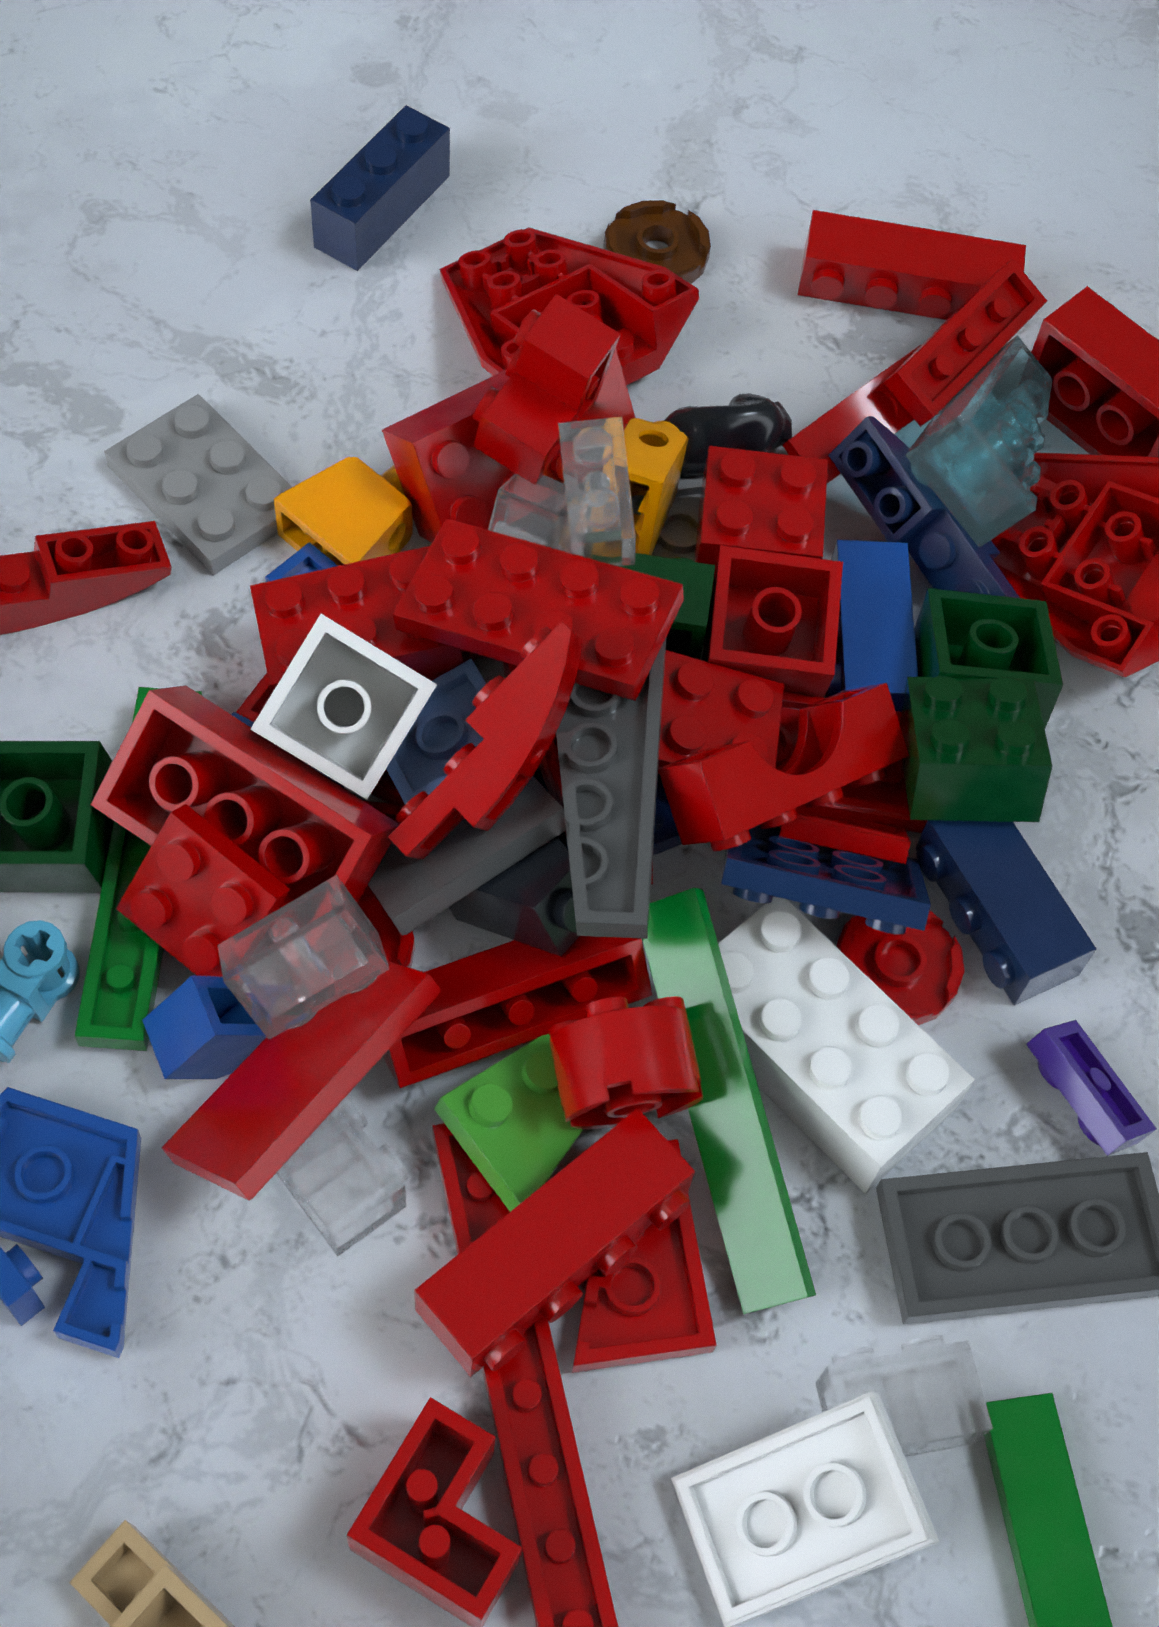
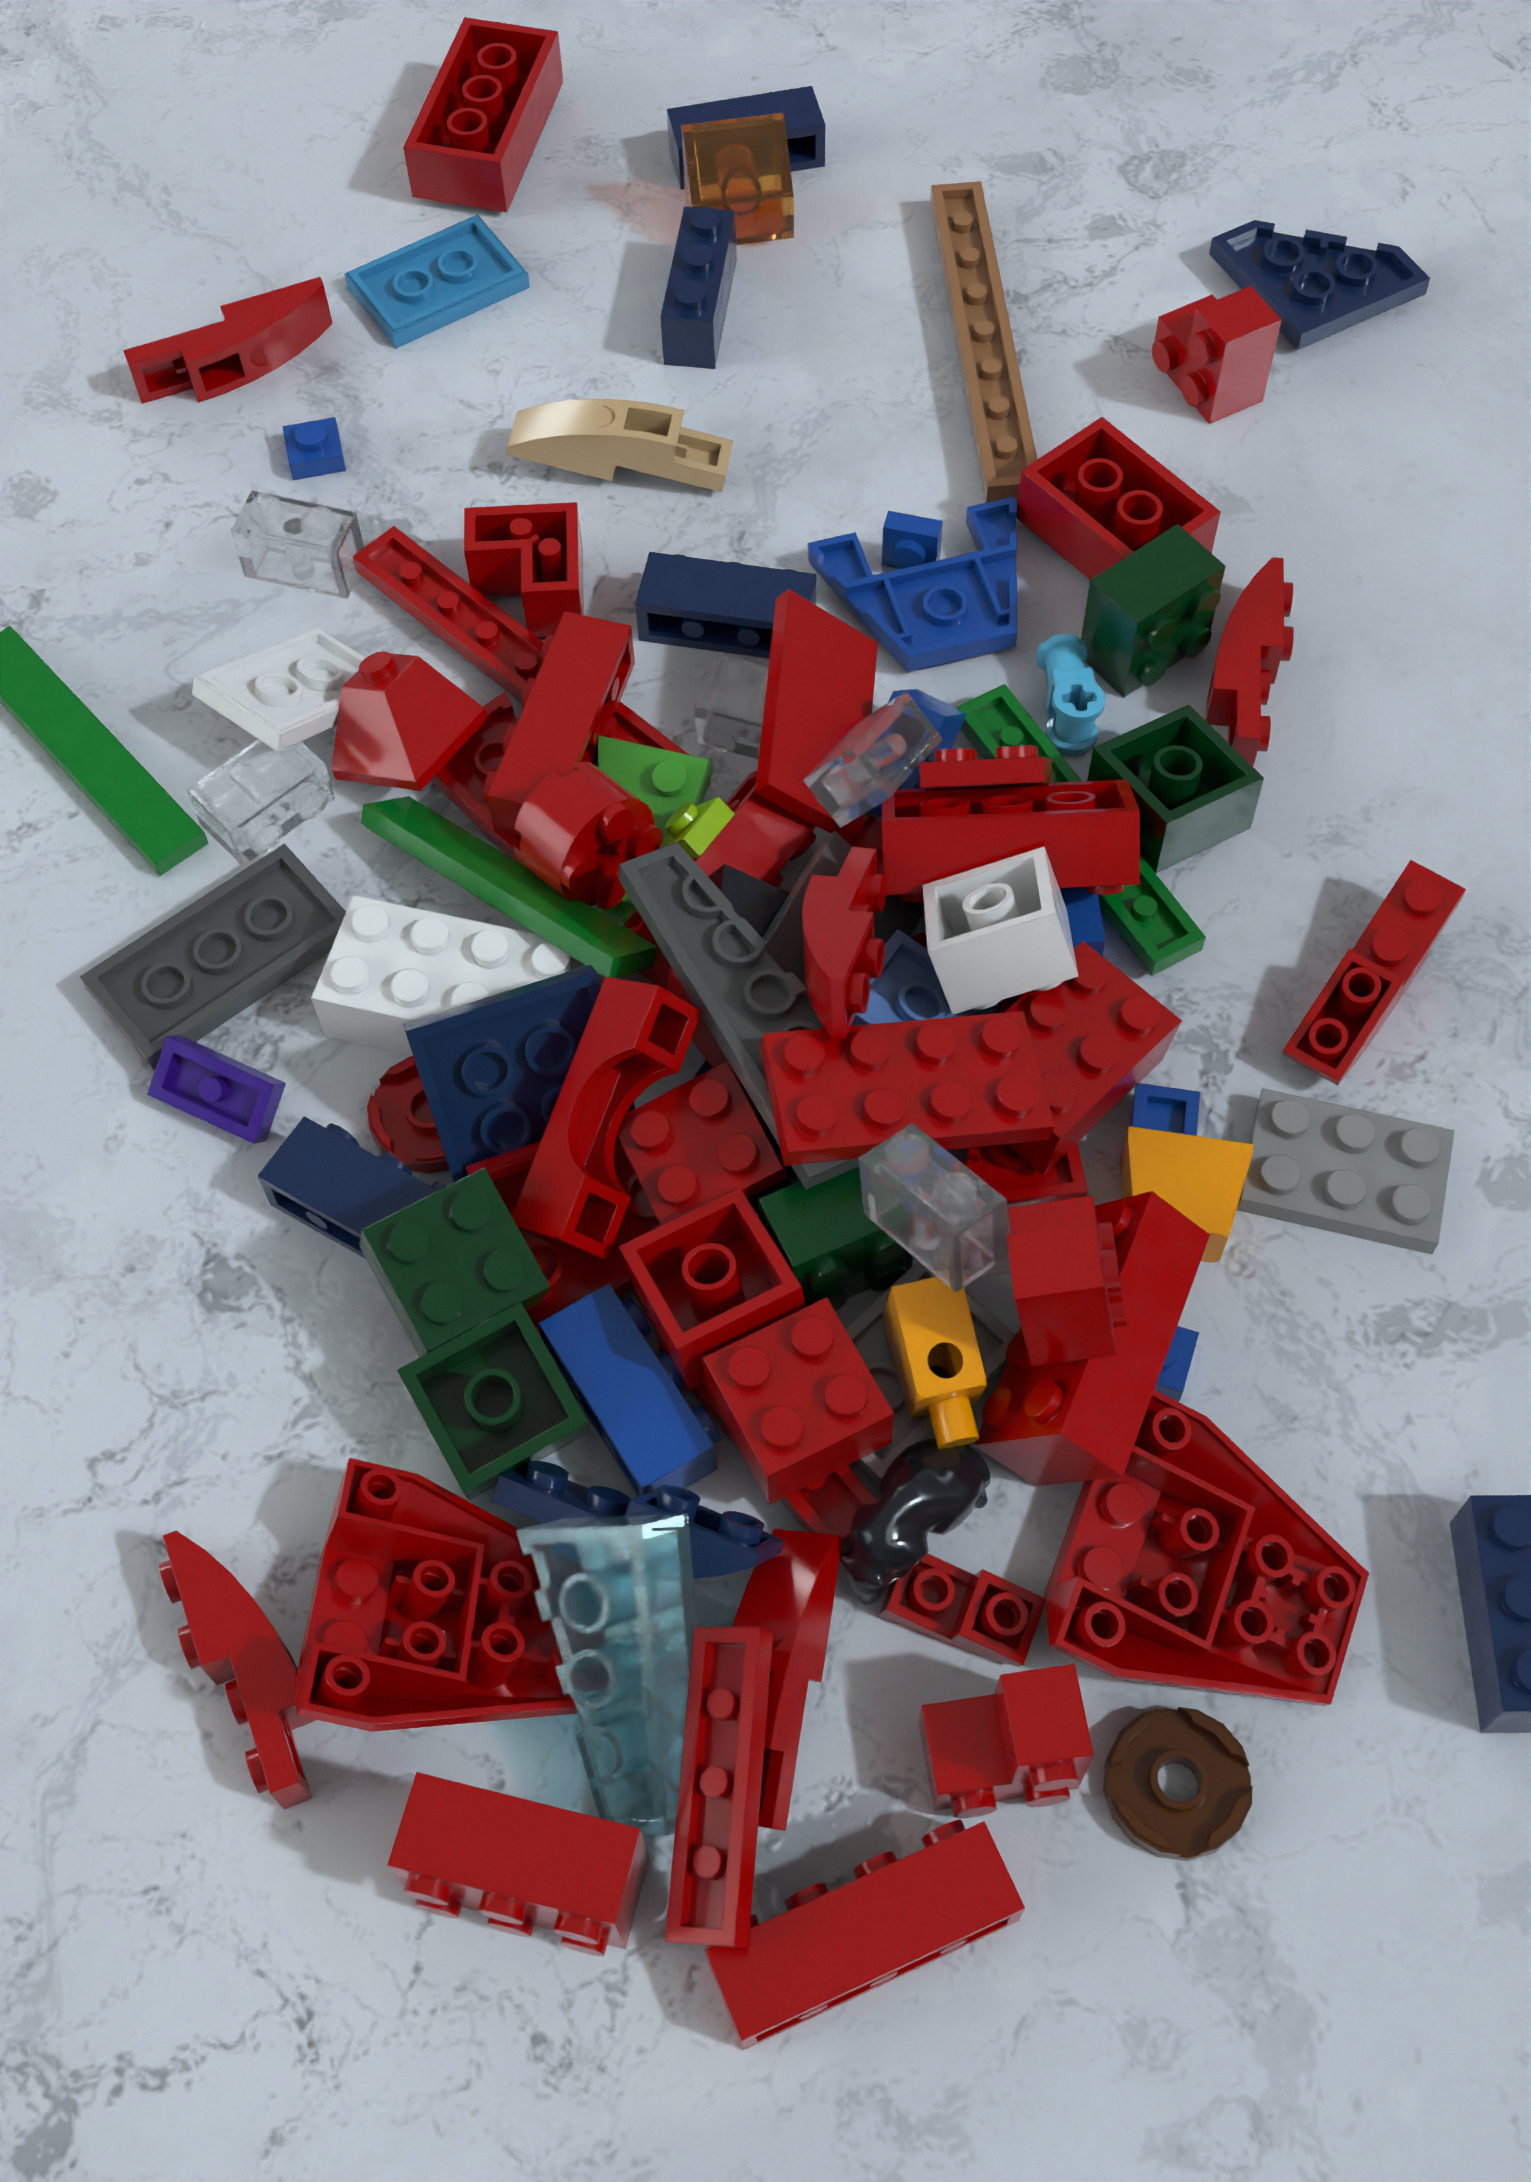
camera: 155 degrees right, 0 degrees up
(262, 1330) = (713, 603): none -> dark blue brick
(512, 1020) = (697, 825): none -> lime plate
(706, 375) = (966, 1609): none -> red slope
(716, 1369) = (400, 722): none -> red slope
(749, 295) = (1008, 1744): none -> red brick

